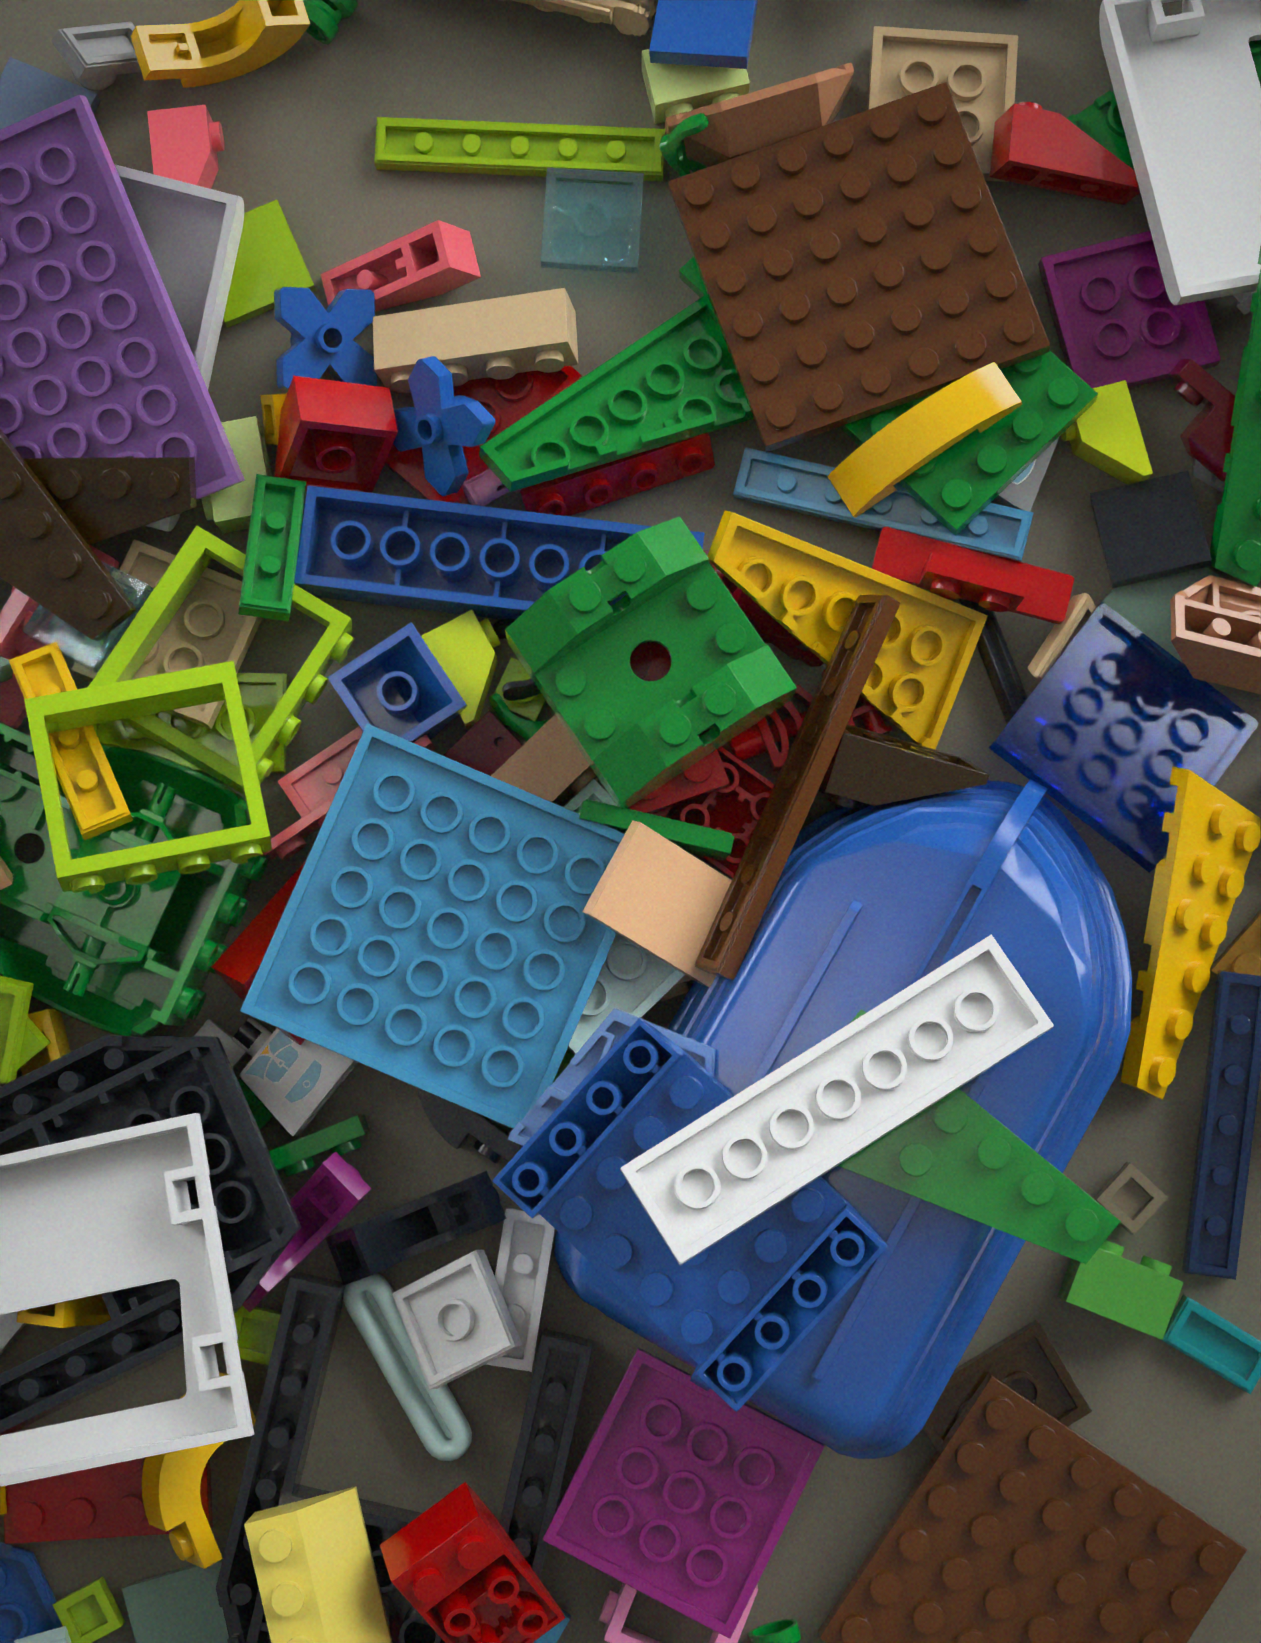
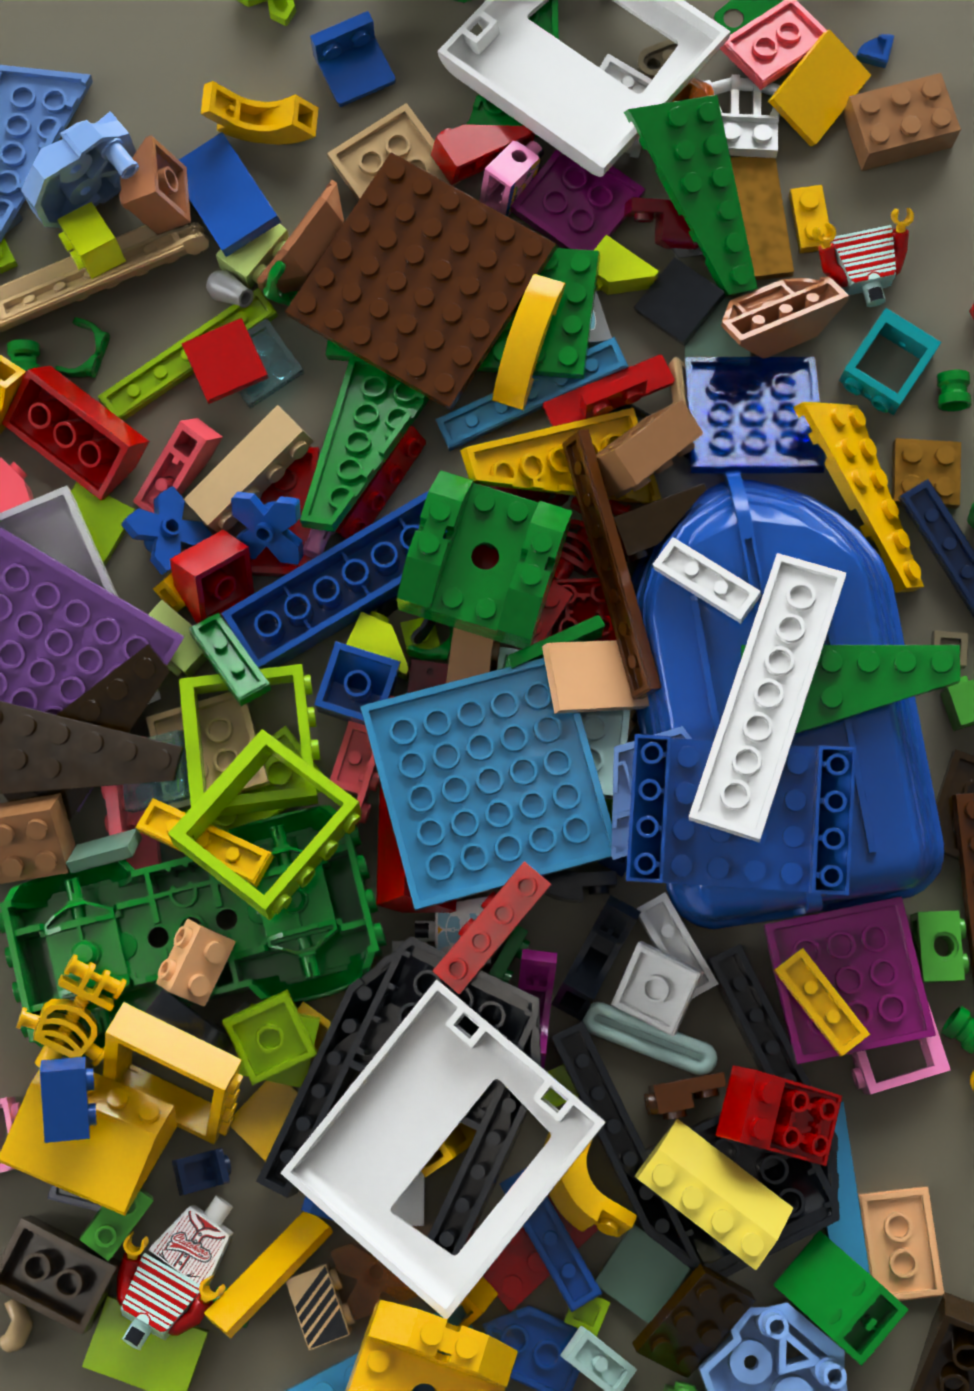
camera: 40 degrees left, 5 degrees down
(107, 1523) = (558, 1252): none -> blue tile
(312, 1102) = (492, 927): none -> red bracket
(315, 137) = (74, 431): none -> red slope
(376, 1453) = (675, 1097): none -> reddish brown plate
(401, 75) = (91, 366): none -> green cap
(552, 187) = (225, 361): none -> red tile
(625, 1494) = (821, 1002): none -> yellow plate
(626, 102) = (227, 288): none -> light grey cone
(829, 1503) = (951, 928): none -> bright green brick
(884, 898) = (707, 580): none -> white plate
(954, 679) = (647, 449): none -> medium nougat brick
(1068, 219) = (509, 175): none -> bright pink torso

